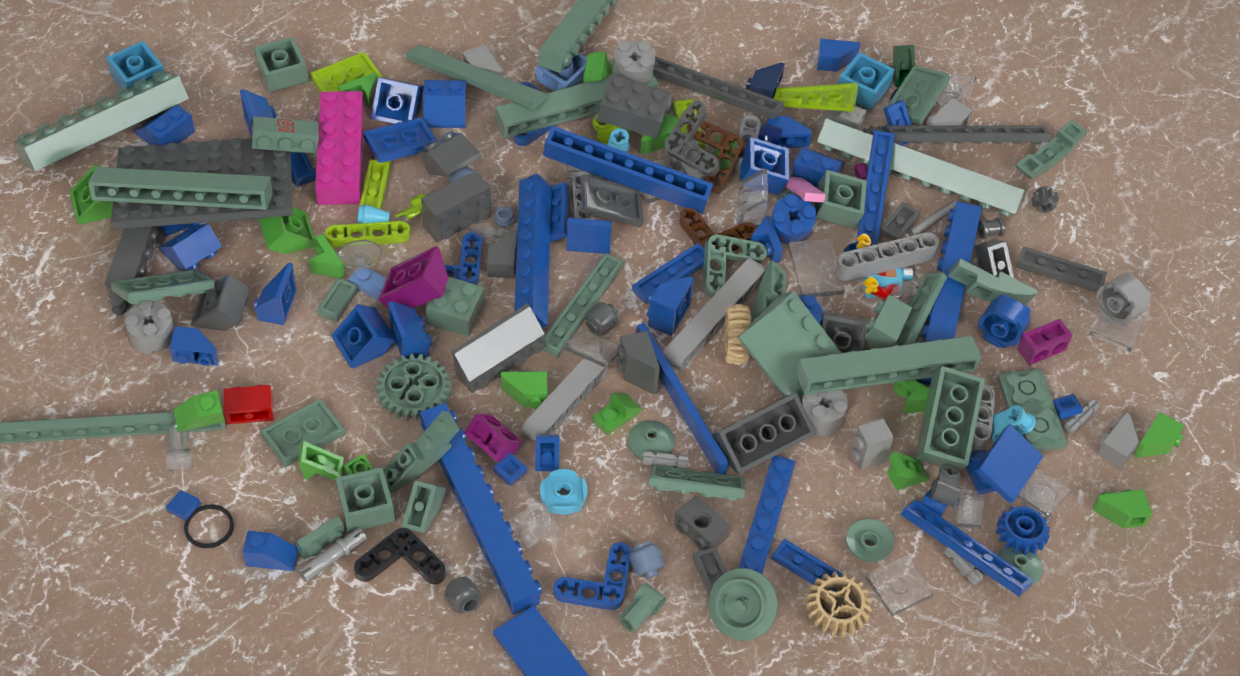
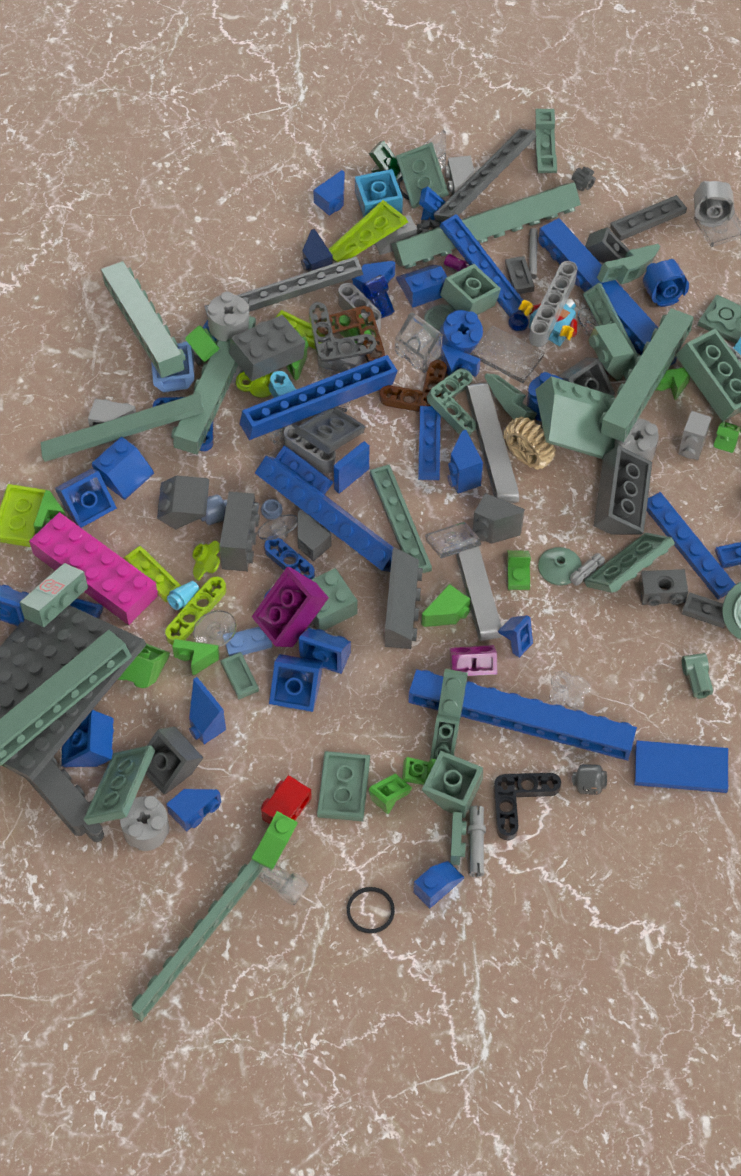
camera: 45 degrees left, 5 degrees up
(183, 505) = (337, 914): blue tile -> none
(398, 139) = (128, 522): blue plate -> none
(413, 386) = (354, 684): sand green gear -> none
(423, 506) = (492, 750): sand green slope -> none
(510, 469) = (508, 671): blue plate -> none
(560, 503) = (560, 640): medium azure plate -> none
(602, 318) = (430, 515): dark grey head -> none
(608, 587) = (660, 684): blue beam -> none
(646, 559) = (663, 642): sand blue head -> none
(687, 408) = (561, 523): blue tile -> none
(767, 156) = (393, 309): blue slope -> none
(805, 189) = (442, 305): bright pink tile -> none
(990, 228) = (577, 225): dark grey bush -> none
(1044, 342) = (701, 274): magenta brick -> none

